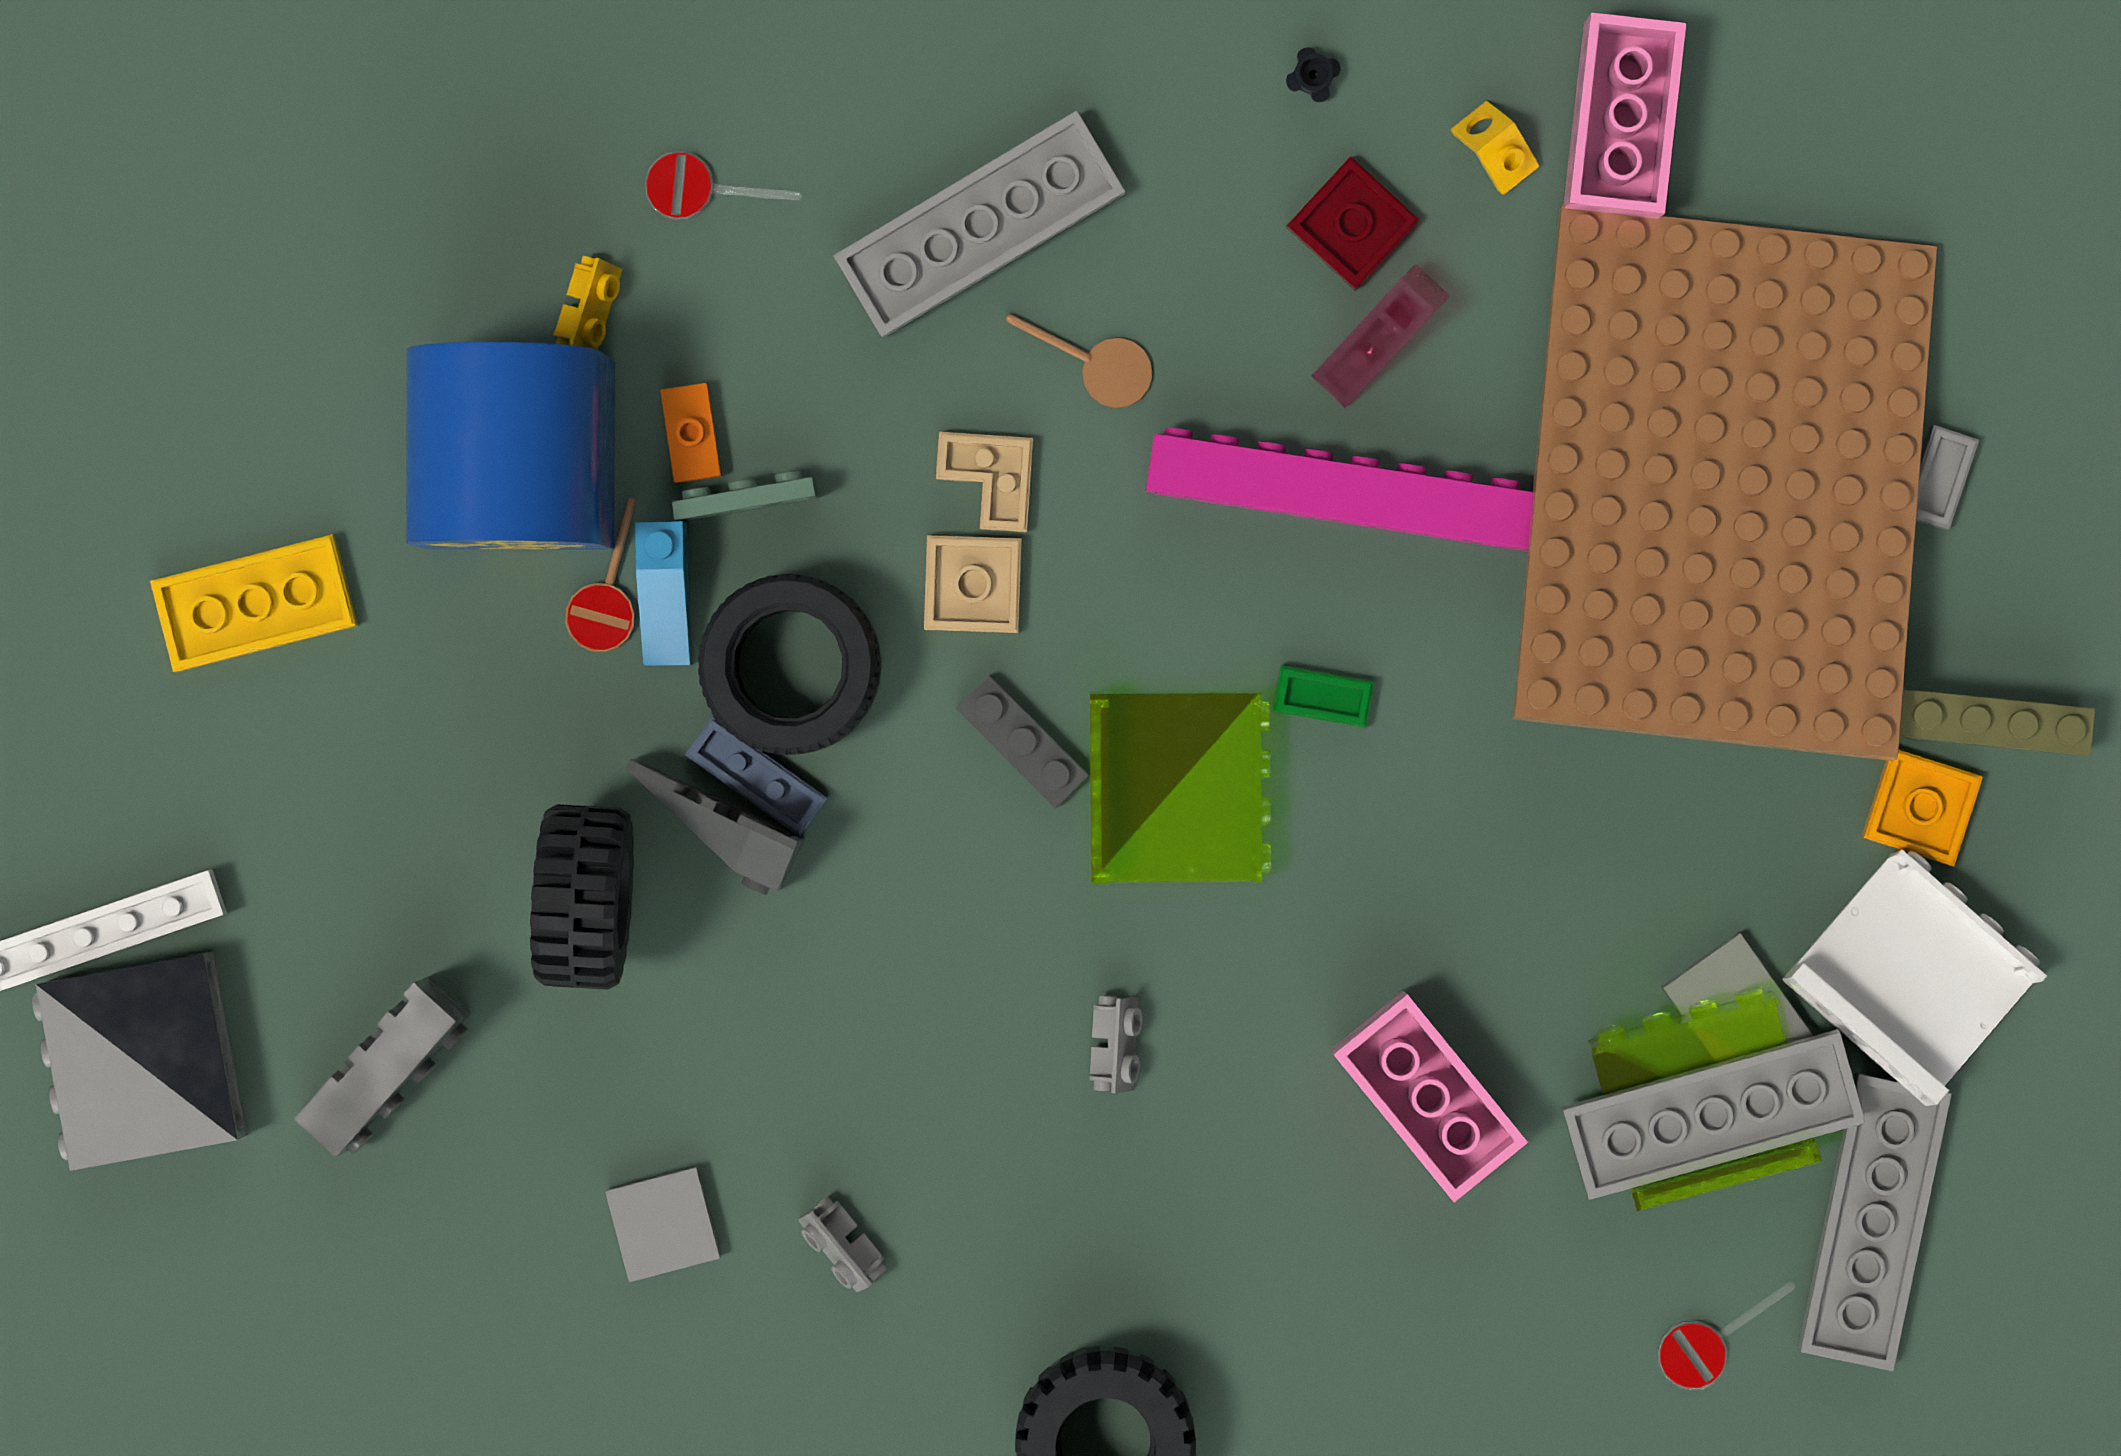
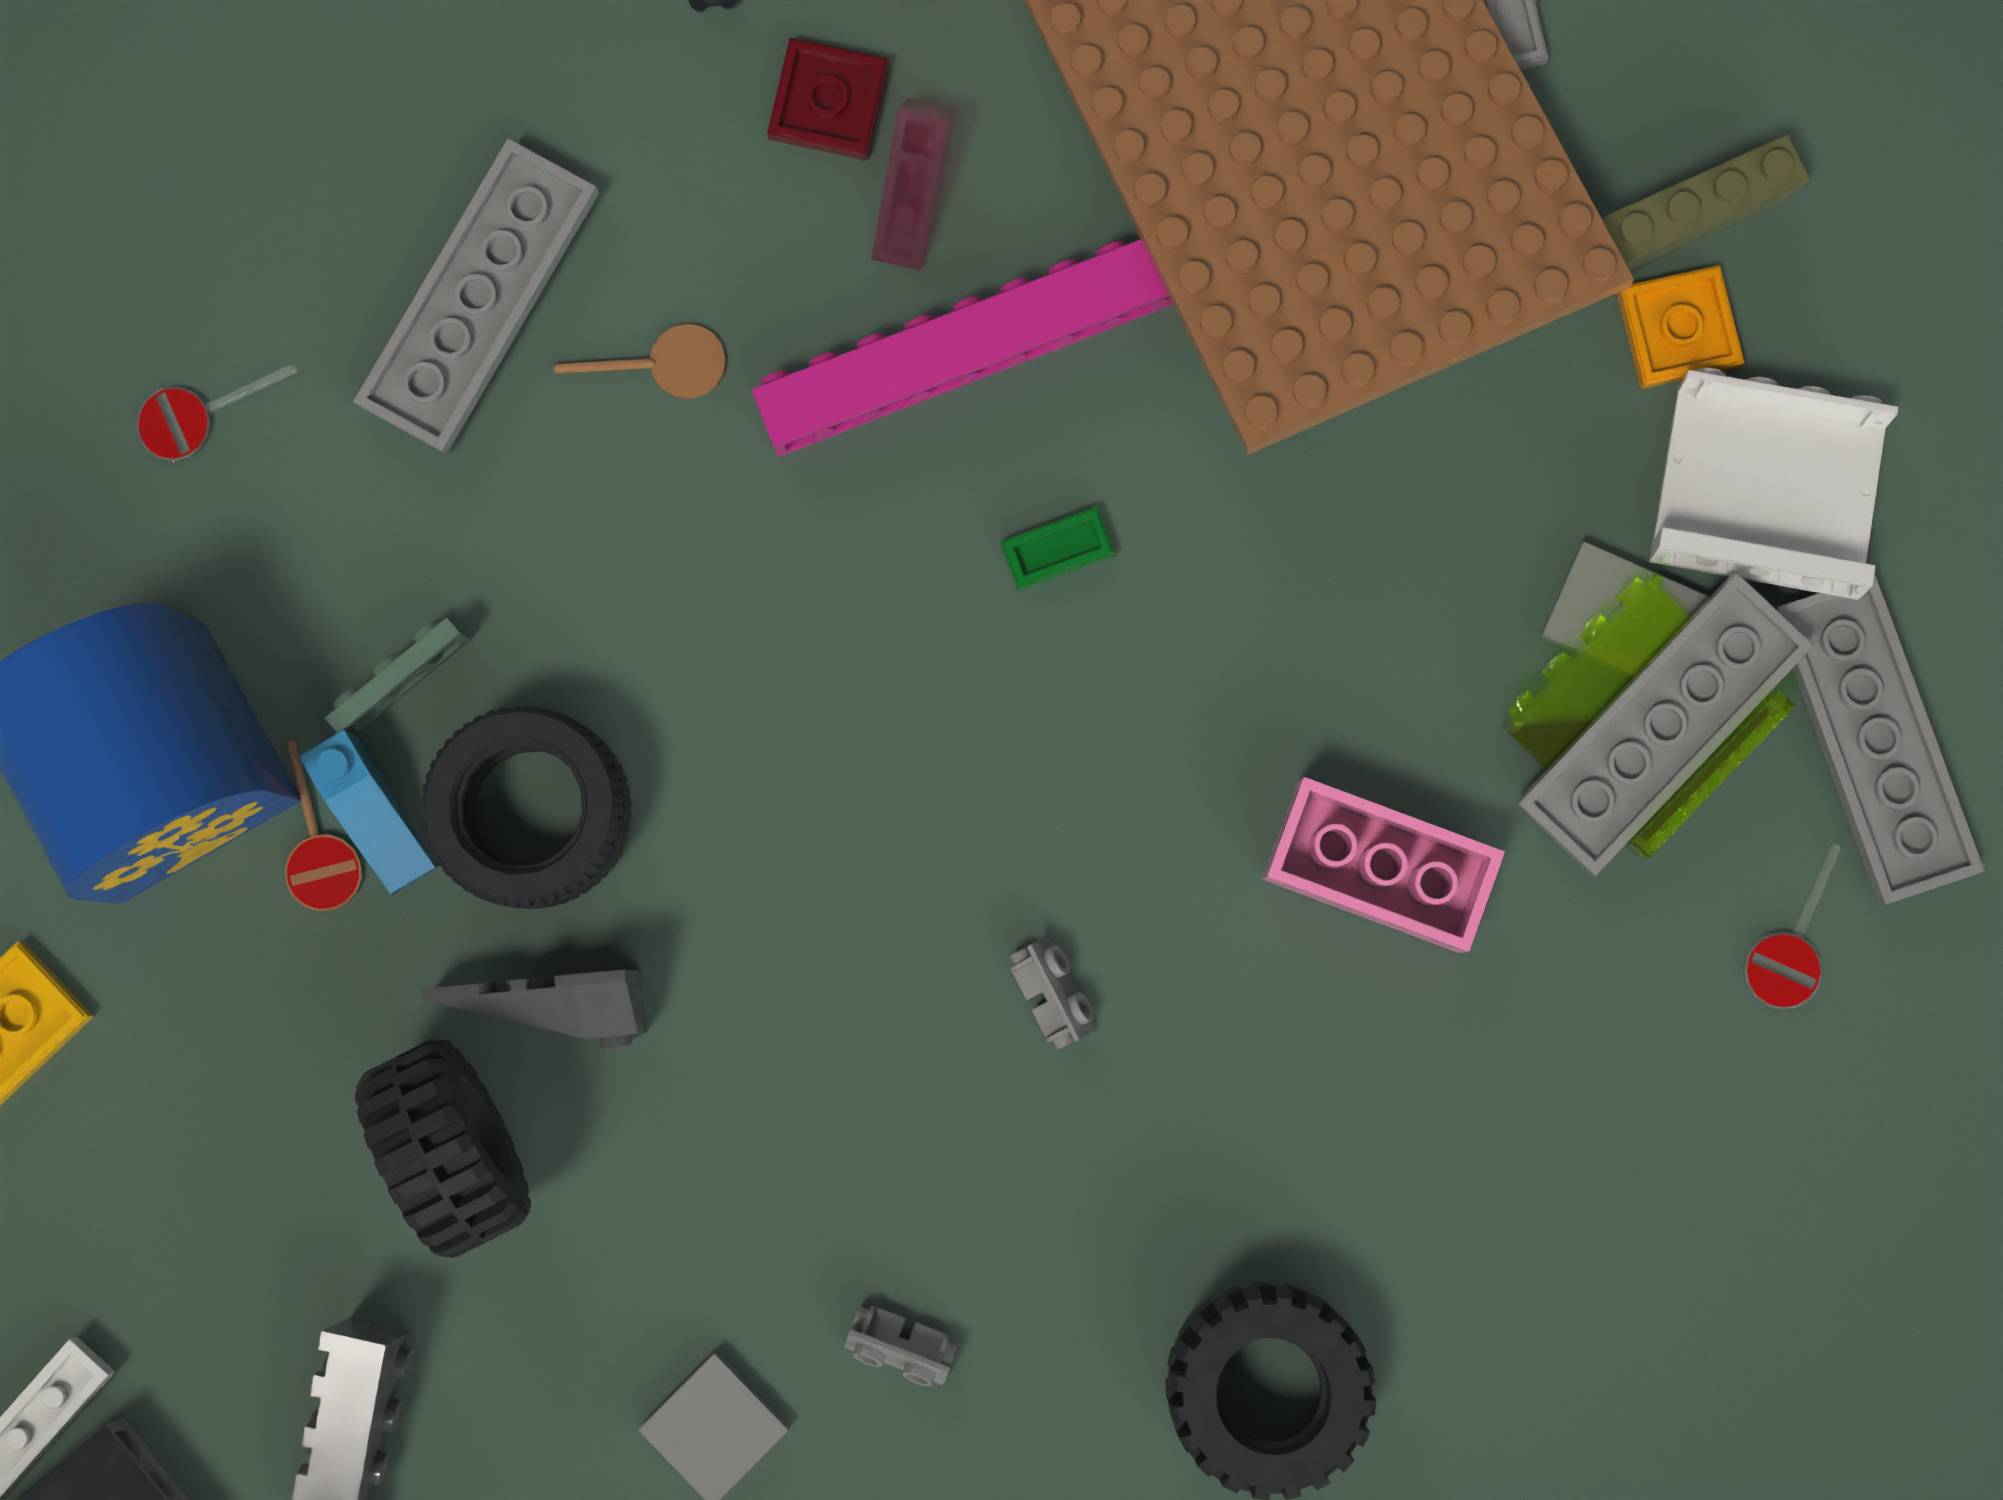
camera: 20 degrees left, 5 degrees down
(597, 287) = (144, 561): yellow hinge -> none
(691, 433) = (313, 647): orange plate -> none
(756, 777) = (559, 937): sand blue tile -> none
(972, 584) = (663, 635): tan tile -> none
(1001, 466) = (622, 509): tan tile -> none
(1022, 741) = (796, 756): dark grey plate -> none
(1178, 787) = (970, 713): clear neon green panel -> none

